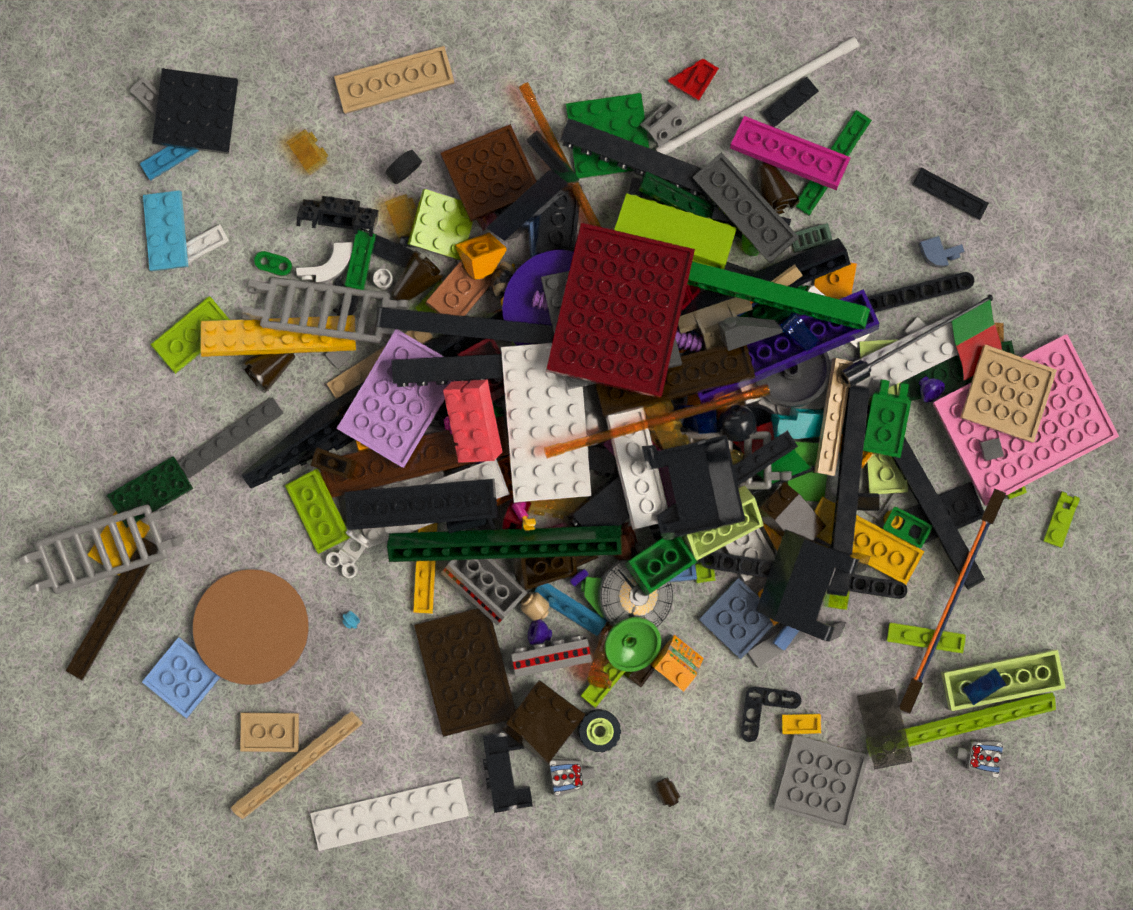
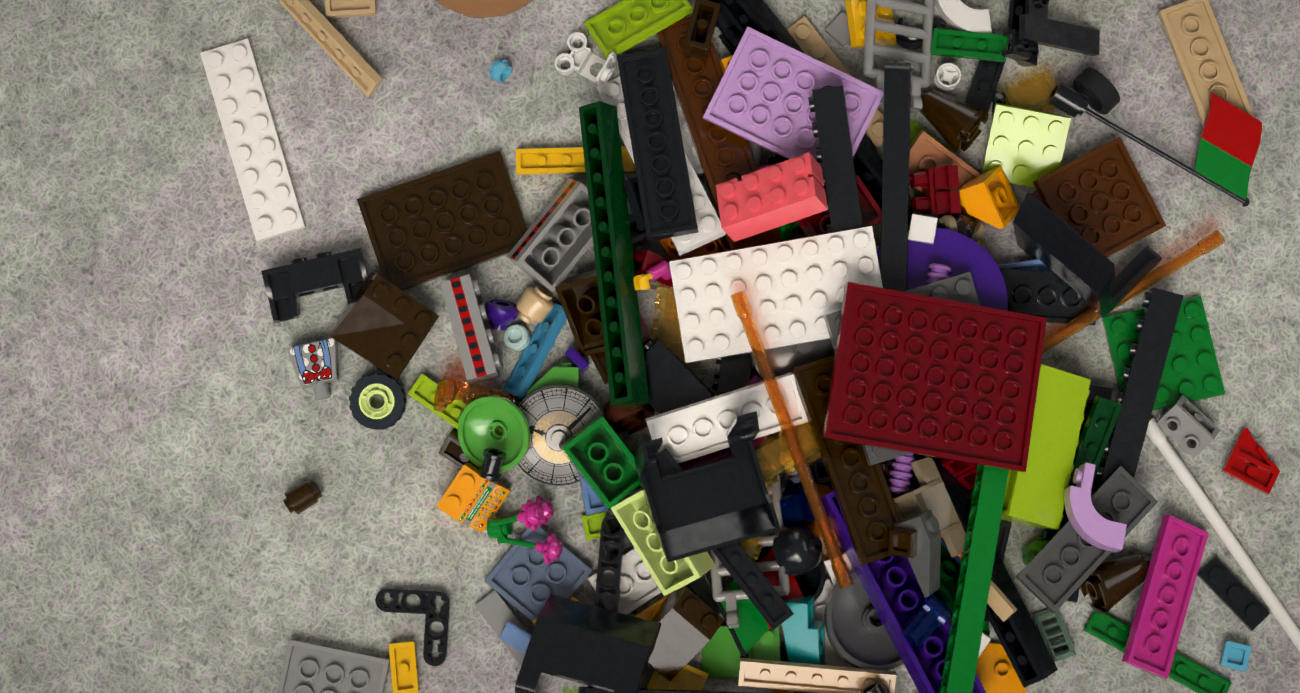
camera: 80 degrees right, 5 degrees down
(359, 191) = (1059, 35): none -> black tile
(456, 75) = (1223, 151): none -> flag
(472, 294) = (936, 178): none -> dark red hips
(504, 308) = (922, 229): none -> white tile
(558, 622) = (517, 337): none -> light aqua tile
(656, 647) = (492, 464): none -> black bush
(697, 619) = (533, 516): none -> dark pink plant
(728, 209) = (1085, 519): none -> lavender arch
(741, 345) = (903, 542): none -> dark brown tile
(836, 105) = (1235, 656): none -> medium azure plate

